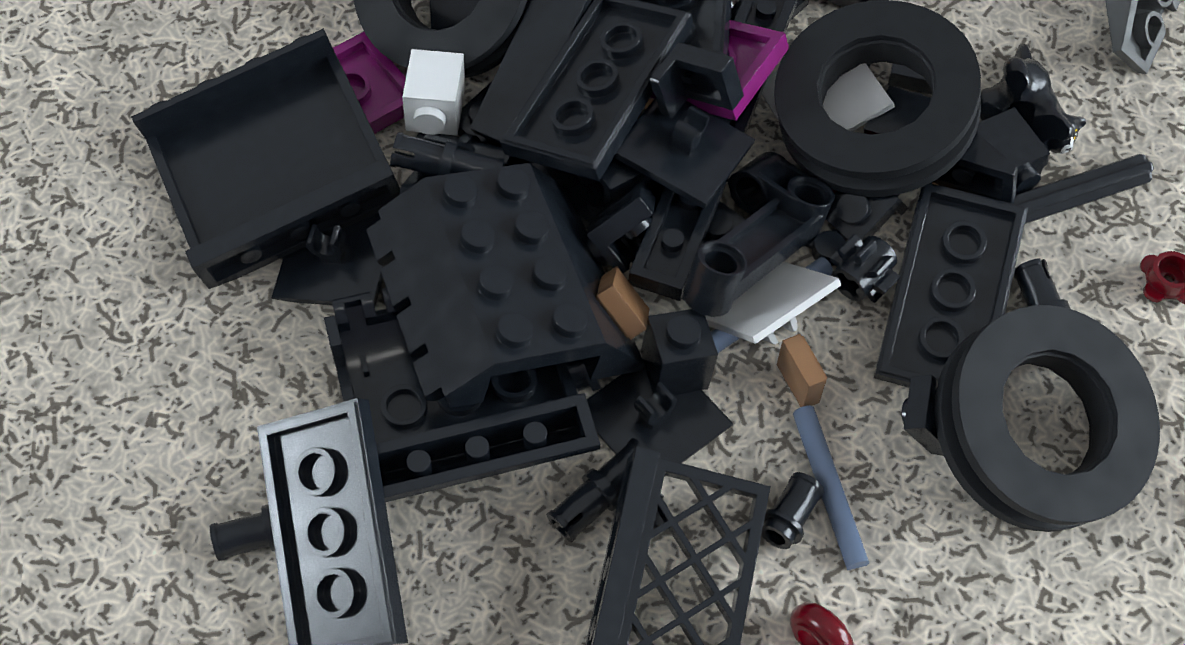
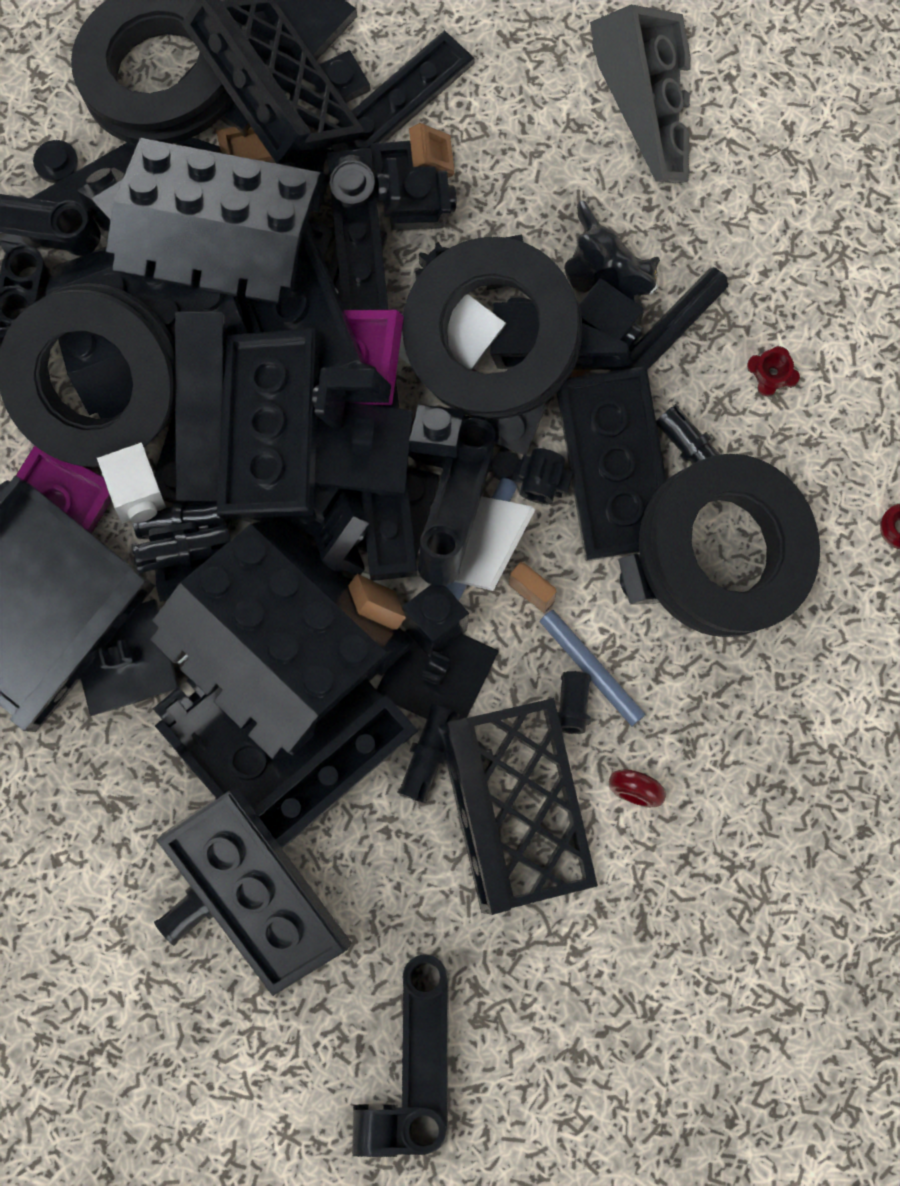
camera: 25 degrees left, 15 degrees up
(771, 169) = (437, 431): none -> black plate

